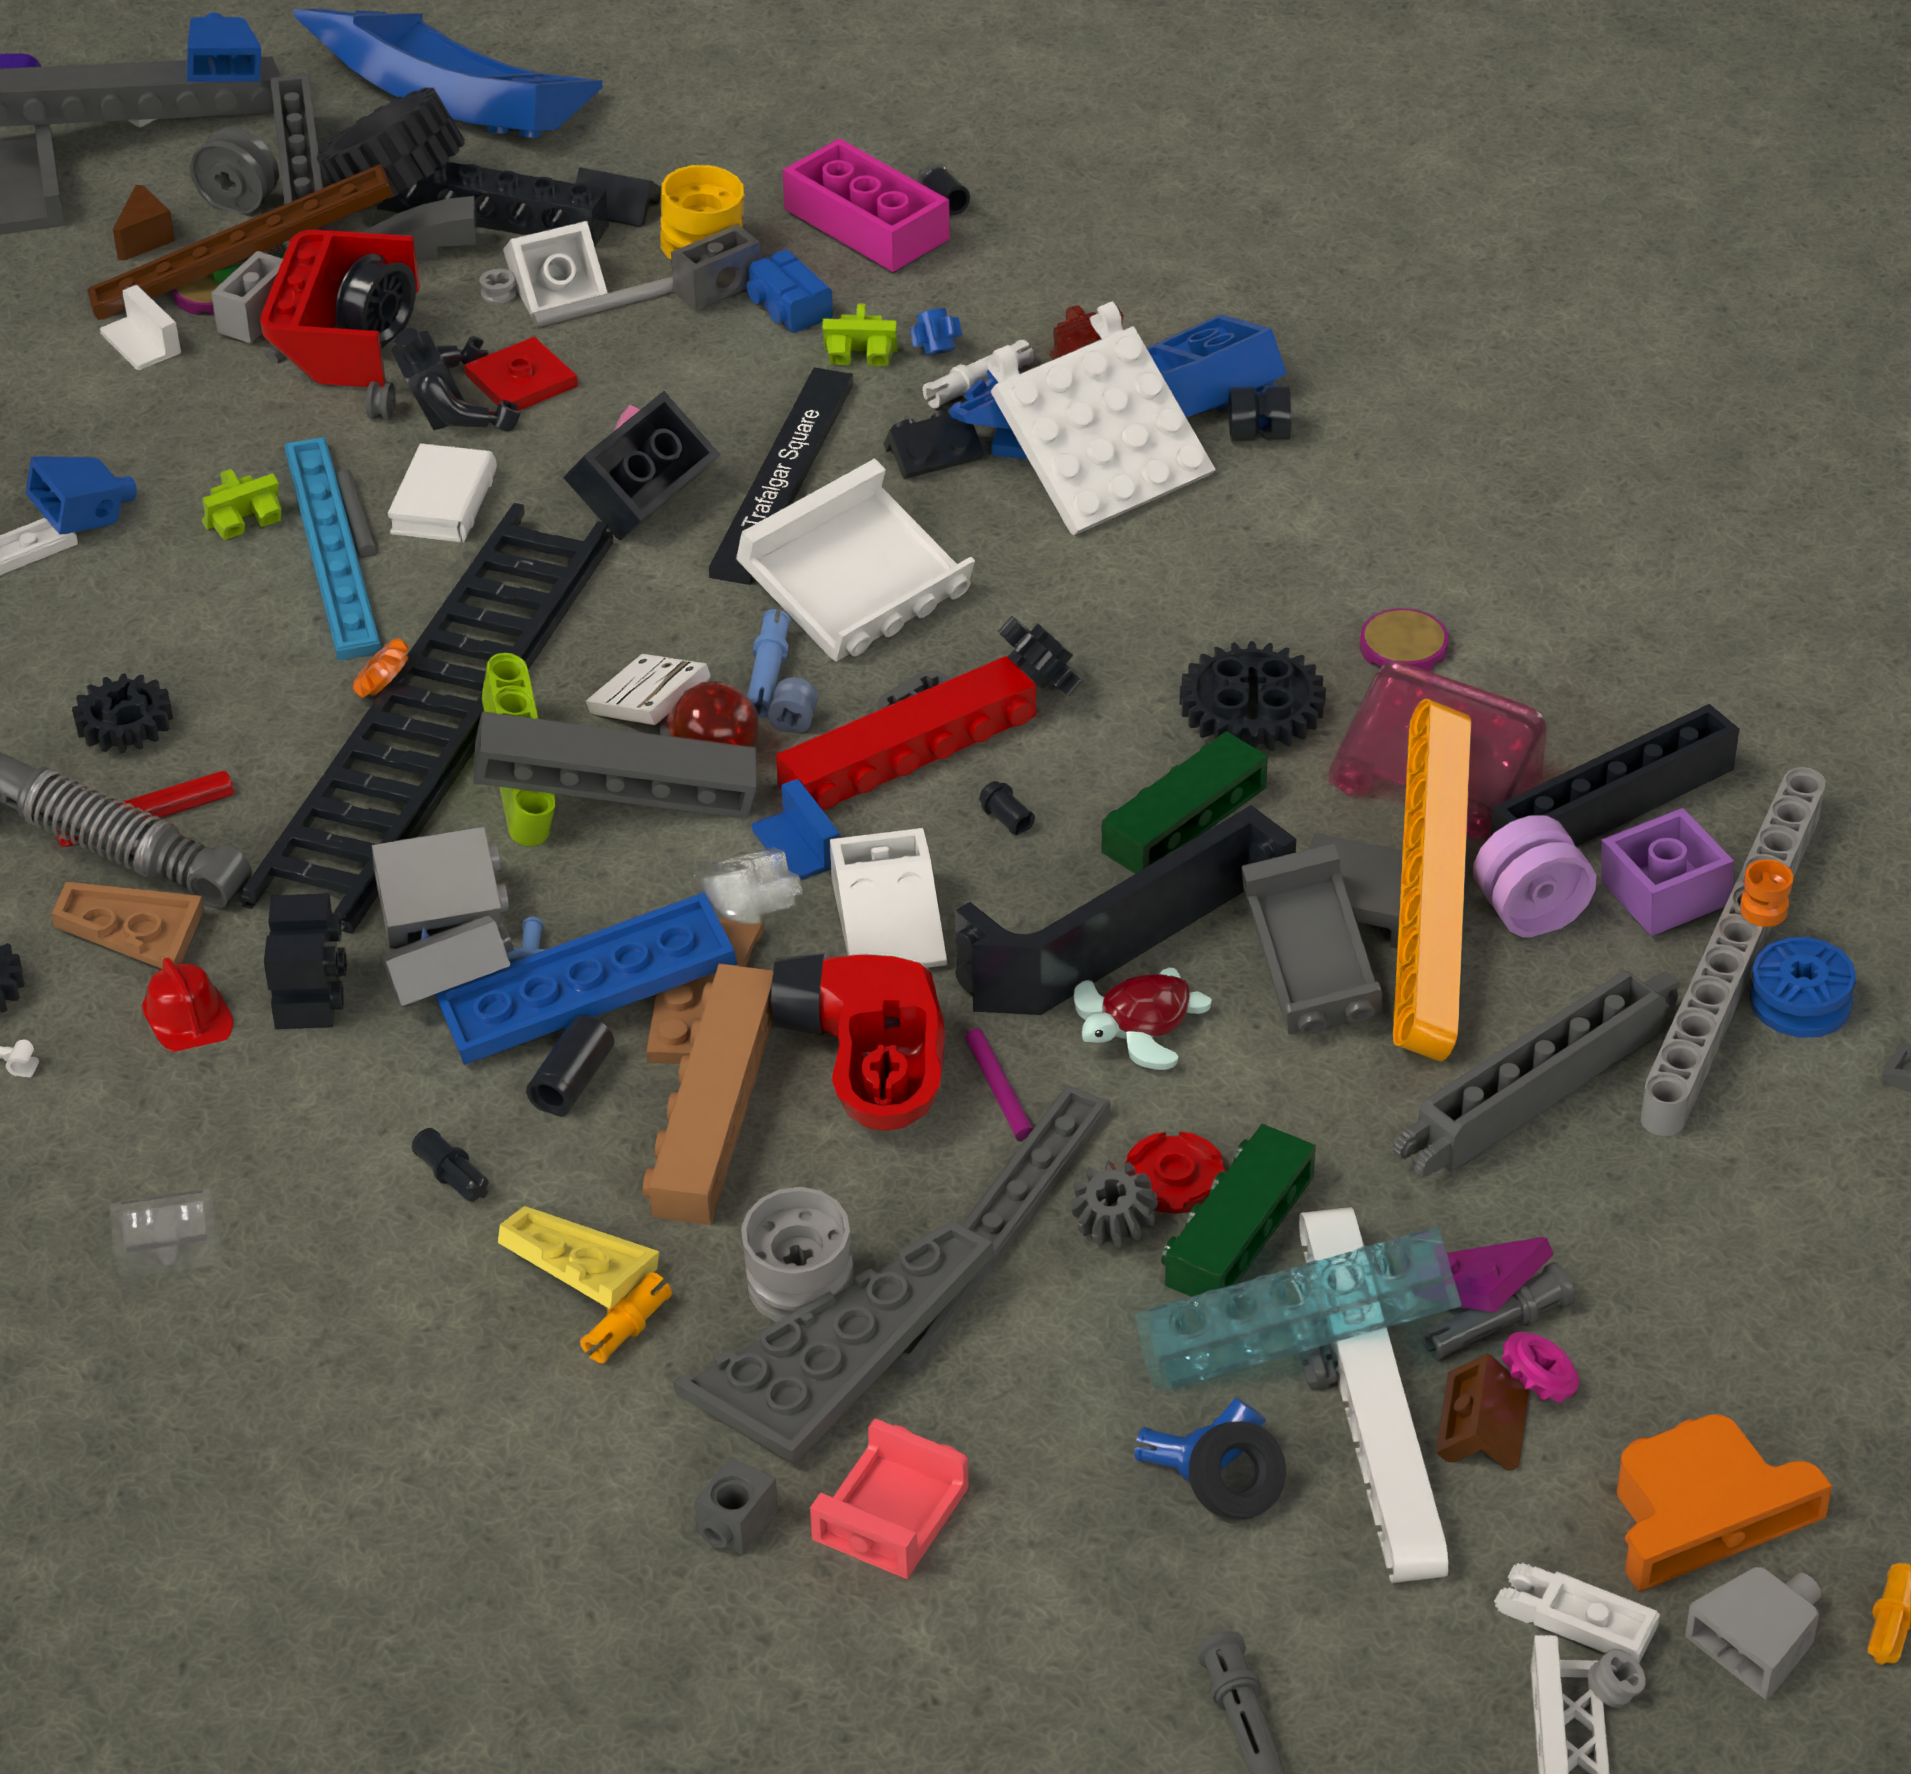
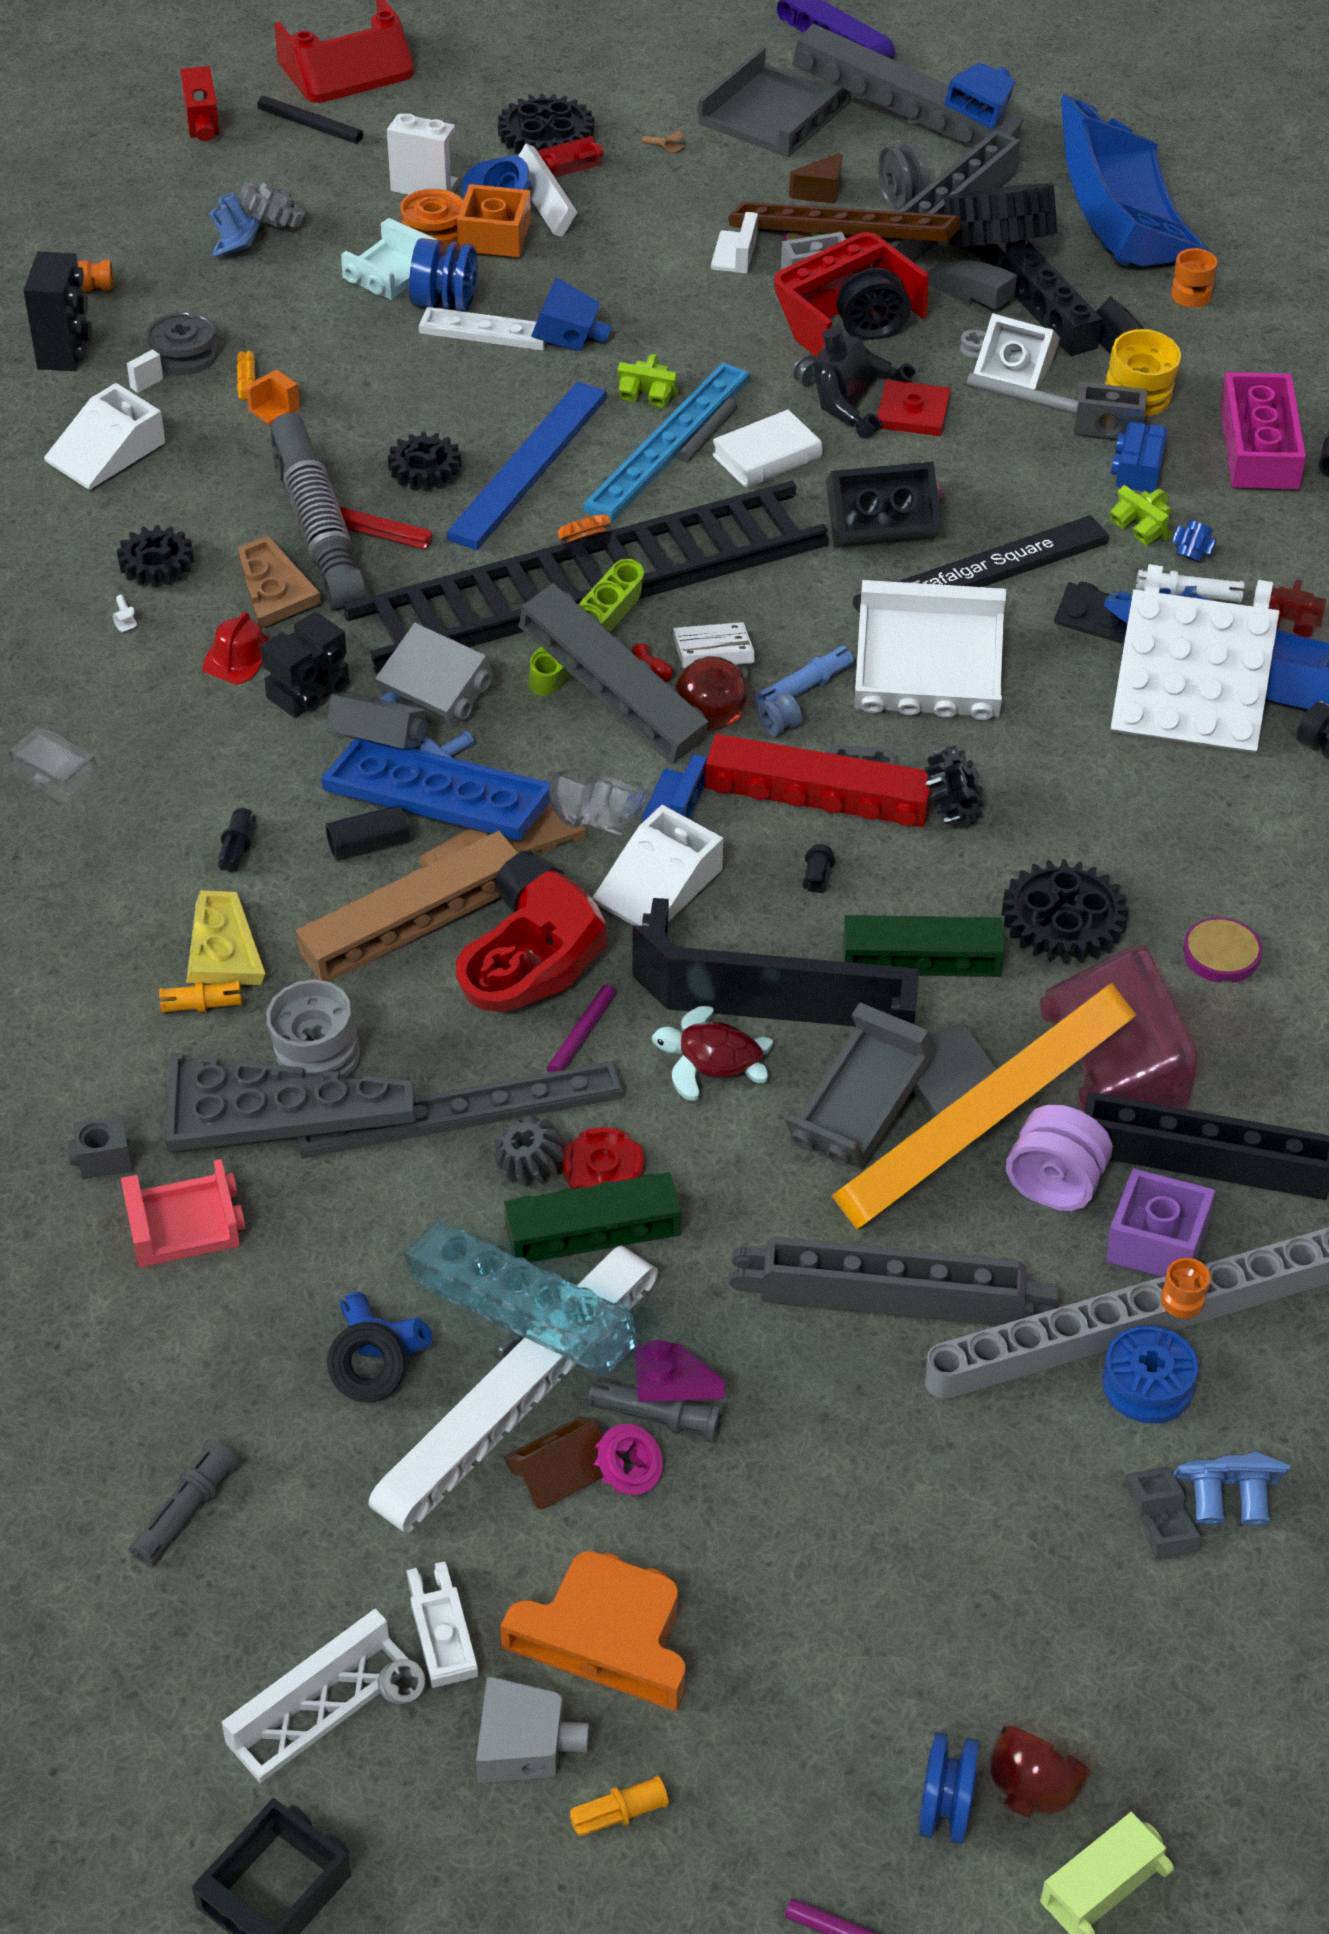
camera: 45 degrees right, 5 degrees up
(226, 655) = (526, 466): none -> blue tile
(624, 110) = (1194, 277): none -> orange wheel

